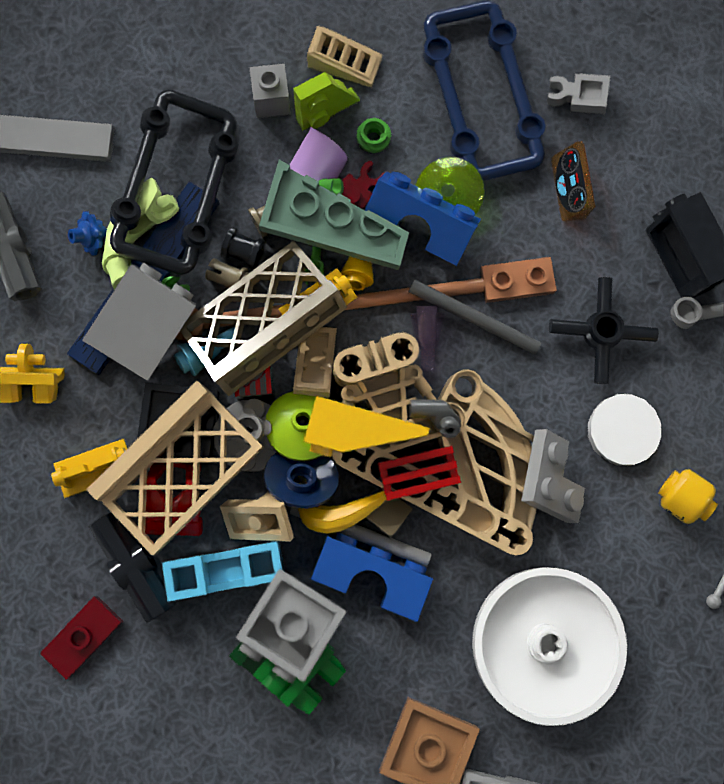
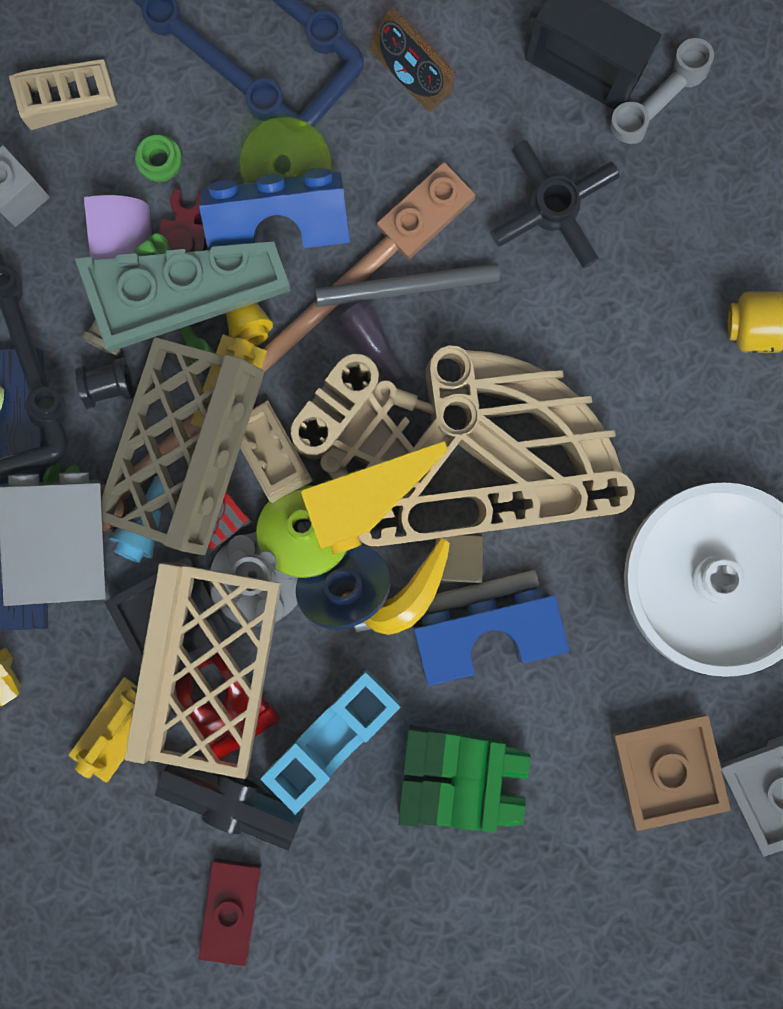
camera: 25 degrees left, 5 degrees up
(228, 276) = (111, 424): dark tan pin -> none
(257, 519) = (327, 663): tan slope -> none
(290, 627) = (442, 751): light grey plate -> none
(320, 99) = (72, 157): lime wing -> none
(439, 413) = (443, 417): dark grey arm -> none
(451, 466) = (493, 464): red tile -> none
(544, 482) = (604, 413): light grey plate -> none
(624, 429) = (648, 296): white tile -> none

